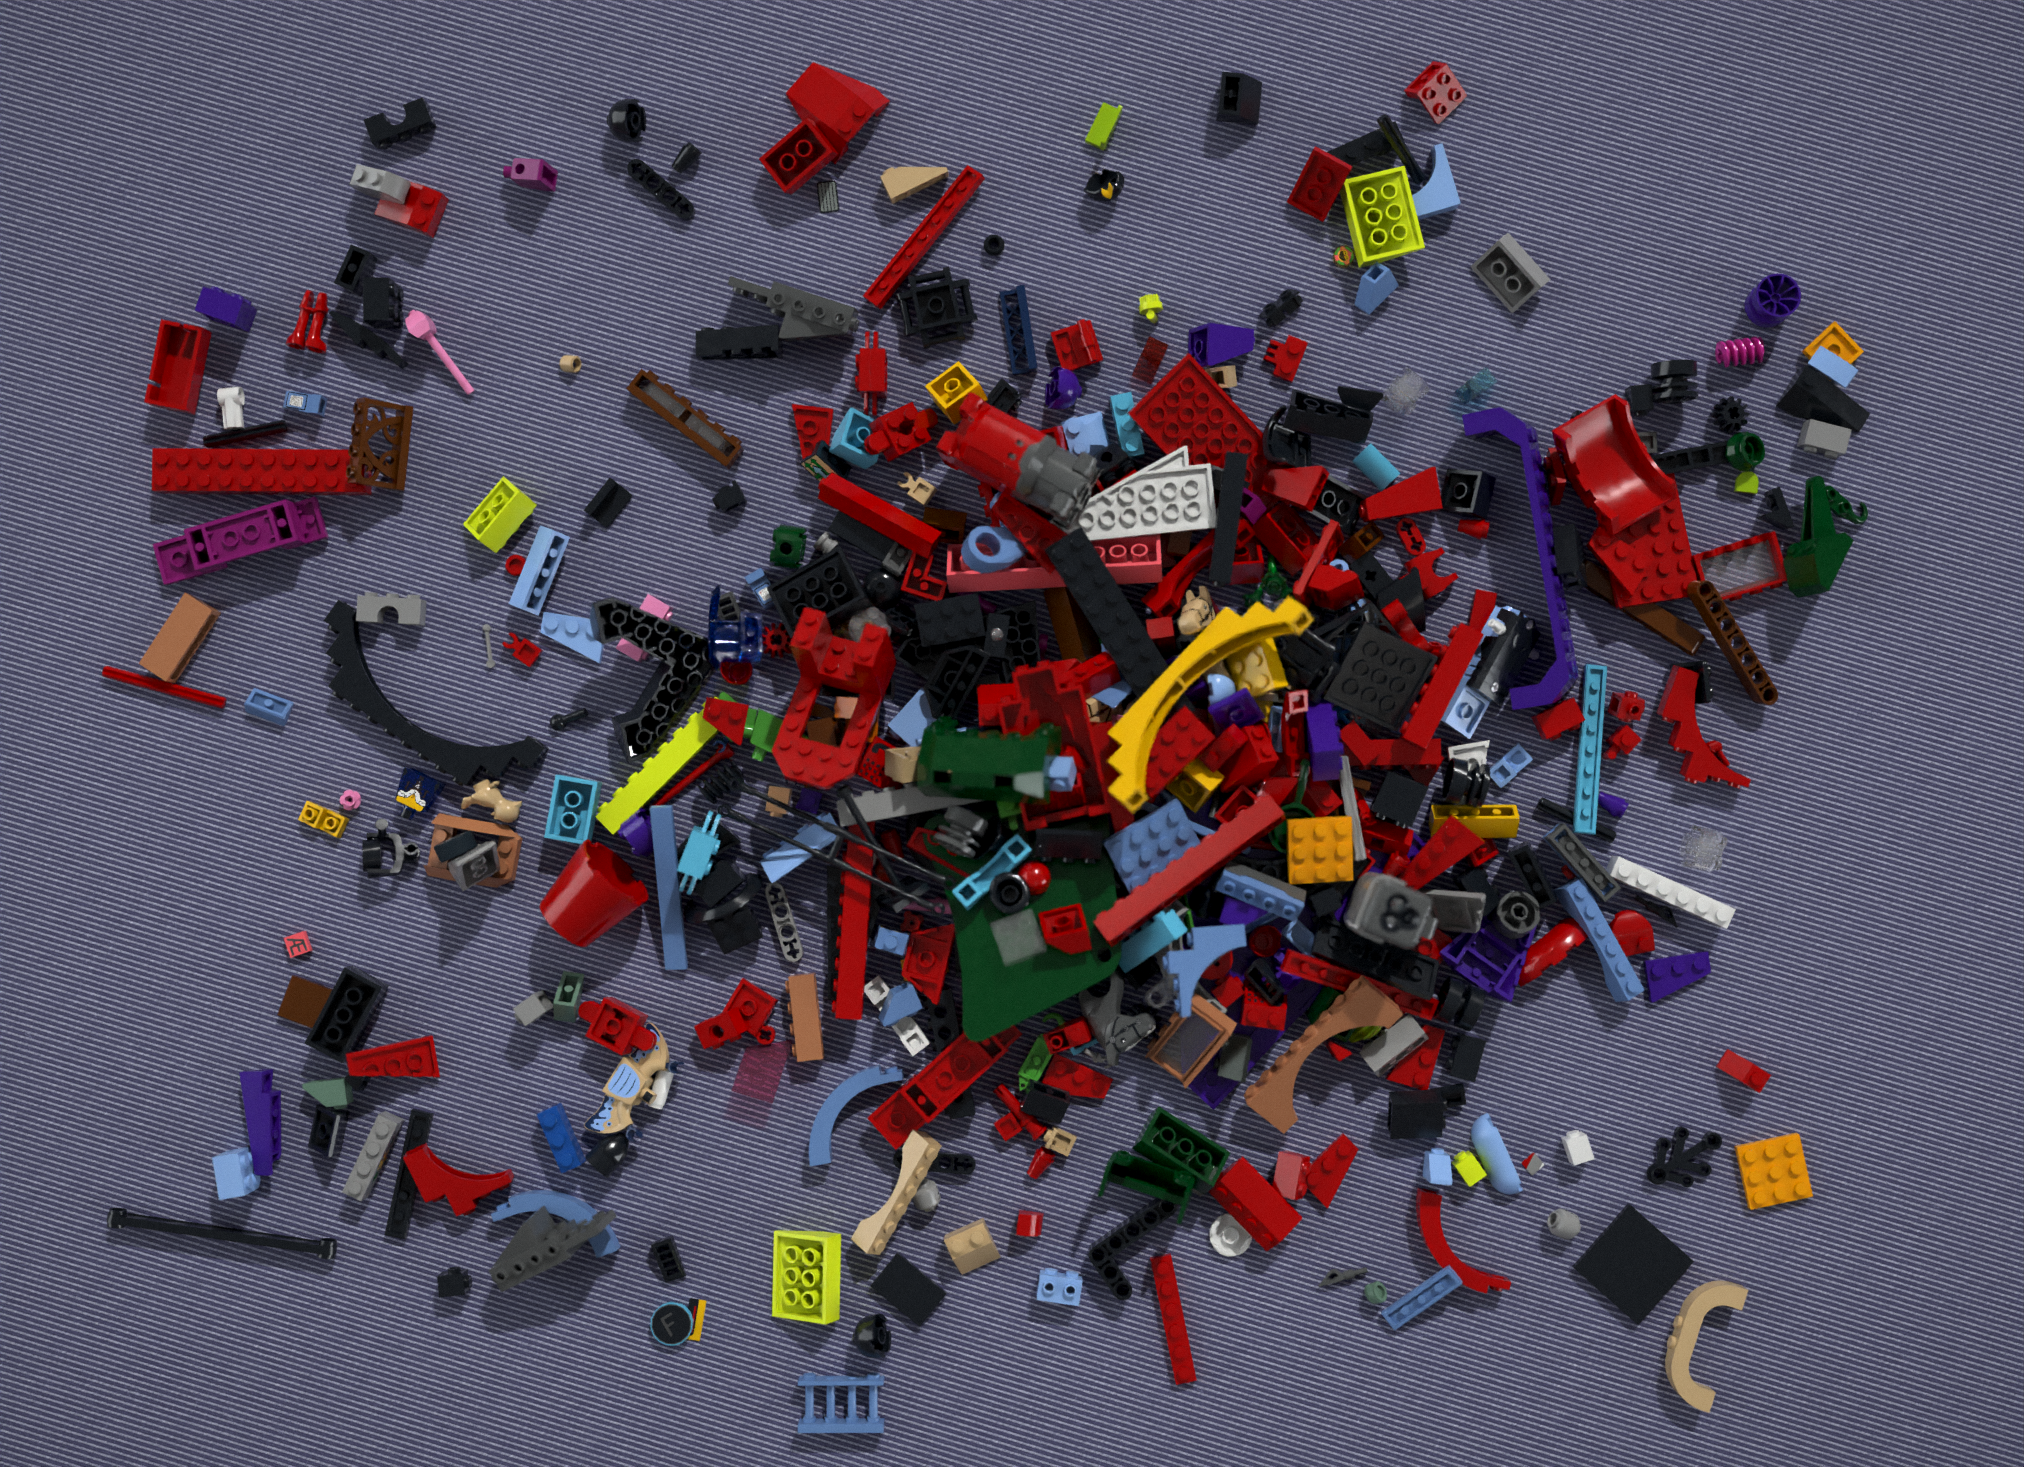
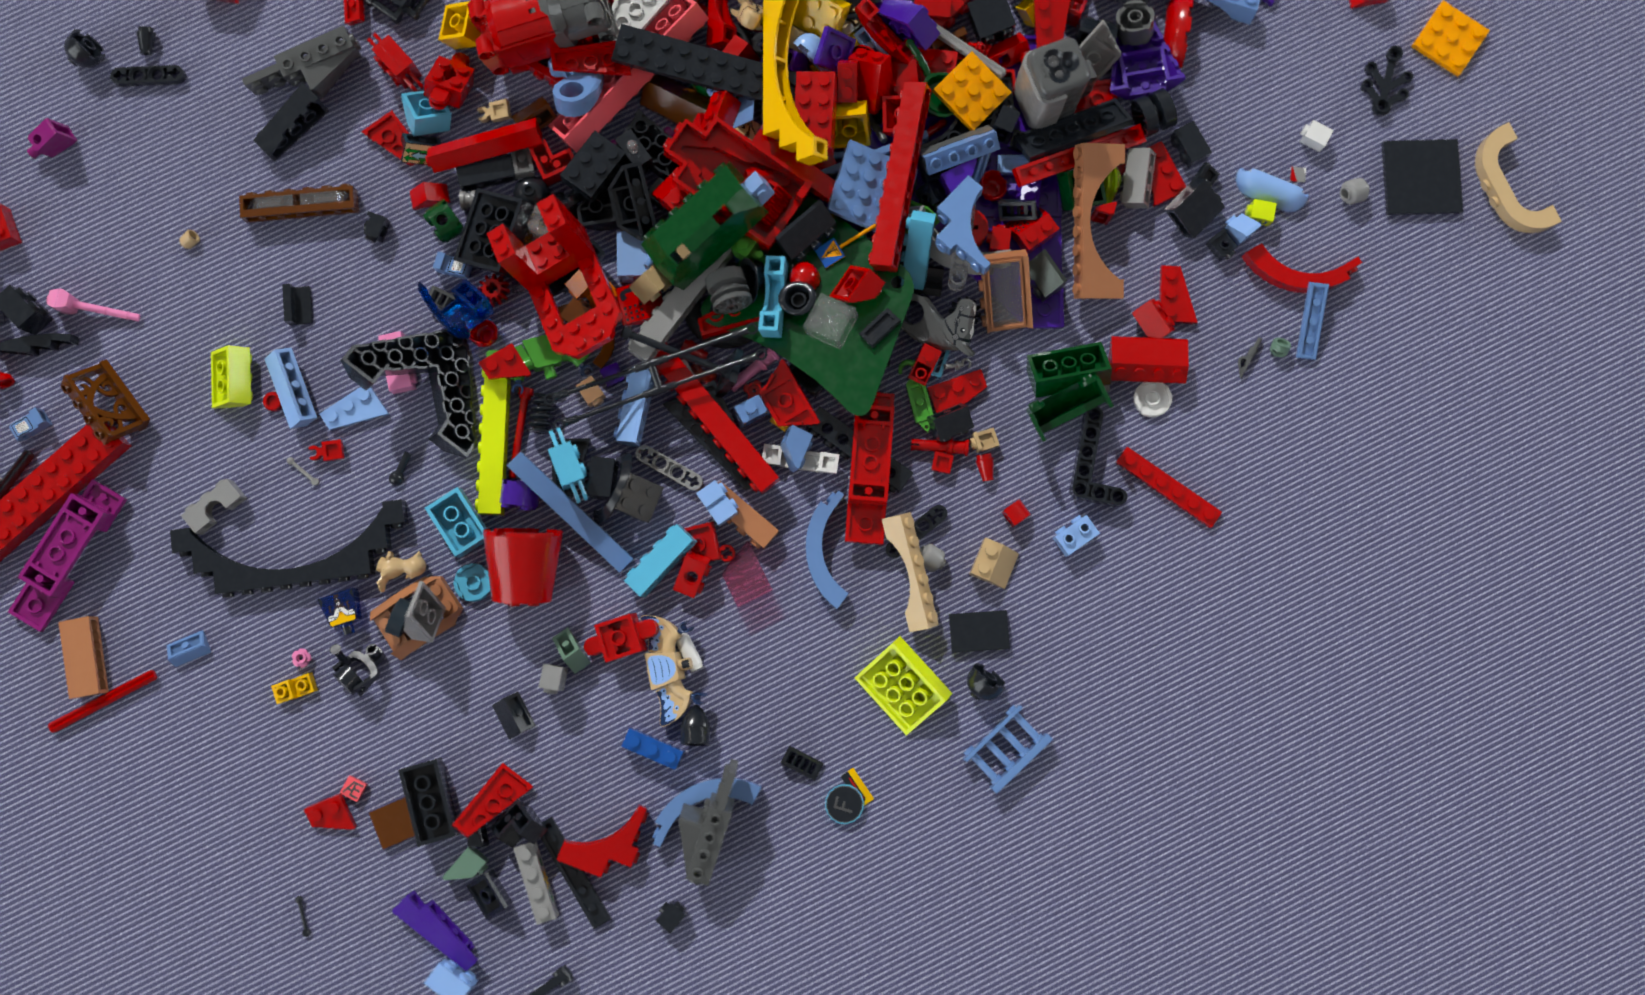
camera: 50 degrees left, 5 degrees down
(160, 1022) = (306, 932): none -> black hinge
(262, 948) = (330, 813): none -> red wing
(400, 1097) = (517, 823): none -> black brick
(476, 1005) = (513, 715): none -> black panel
(541, 866) = (472, 582): none -> medium azure tile
(706, 992) = (660, 560): none -> medium azure brick
(793, 993) = (717, 502): none -> light blue piece
(798, 509) = (428, 194): none -> red slope
(1052, 981) = (880, 328): none -> black tile
(1075, 877) = (831, 252): none -> piece
(1408, 1157) = (1216, 247): none -> black brick

